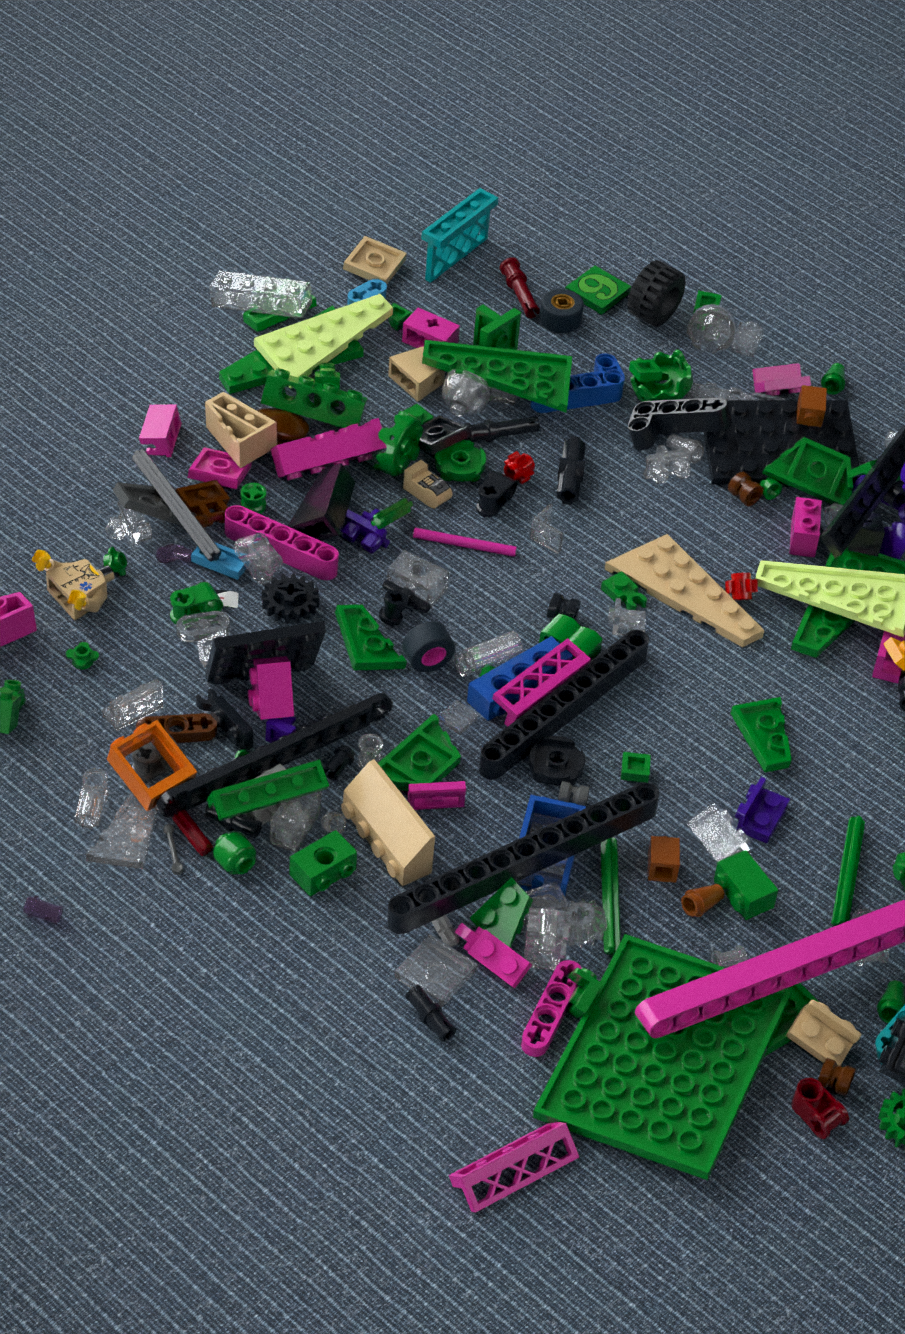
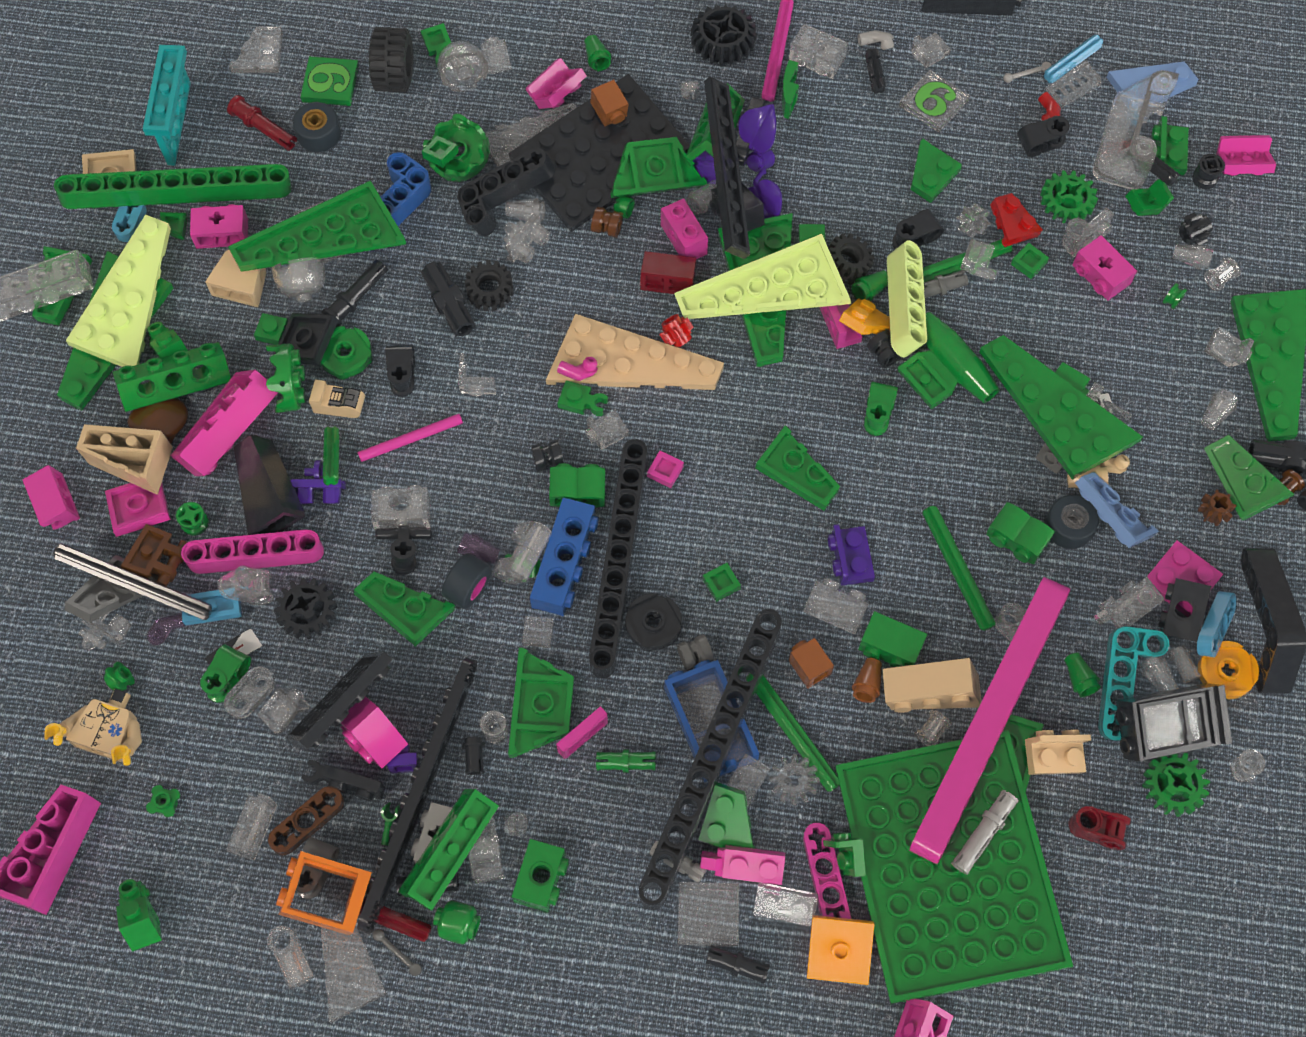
camera: 30 degrees left, 20 degrees up
(389, 824) = (568, 798): tan slope -> none
(402, 281) = (172, 186): none -> green beam
(456, 834) = (626, 761): none -> green pin
(457, 634) = (478, 547): none -> clear purple cone
(496, 330) = (280, 195): green bracket -> none
(503, 999) = (785, 904): none -> clear plate
(519, 467) = (403, 327): red gear -> none
(522, 1052) = (840, 949): none -> light orange plate
(545, 938) = (782, 824): clear brick -> none
(550, 683) = (596, 558): dark pink fence -> none
(558, 244) = (260, 52): none -> clear wing
(612, 489) = (491, 298): none -> black tyre
(635, 569) = (580, 372): none -> dark pink arm
(653, 670) = (665, 469): none -> dark pink plate
(709, 1039) = (992, 821): none -> light grey pin
(750, 924) = (932, 686): none -> tan wedge
(765, 544) = (667, 272): none -> dark red hinge
(836, 1077) = (1092, 785): reddish brown wheel -> none
(873, 729) = (879, 405): none -> green piece

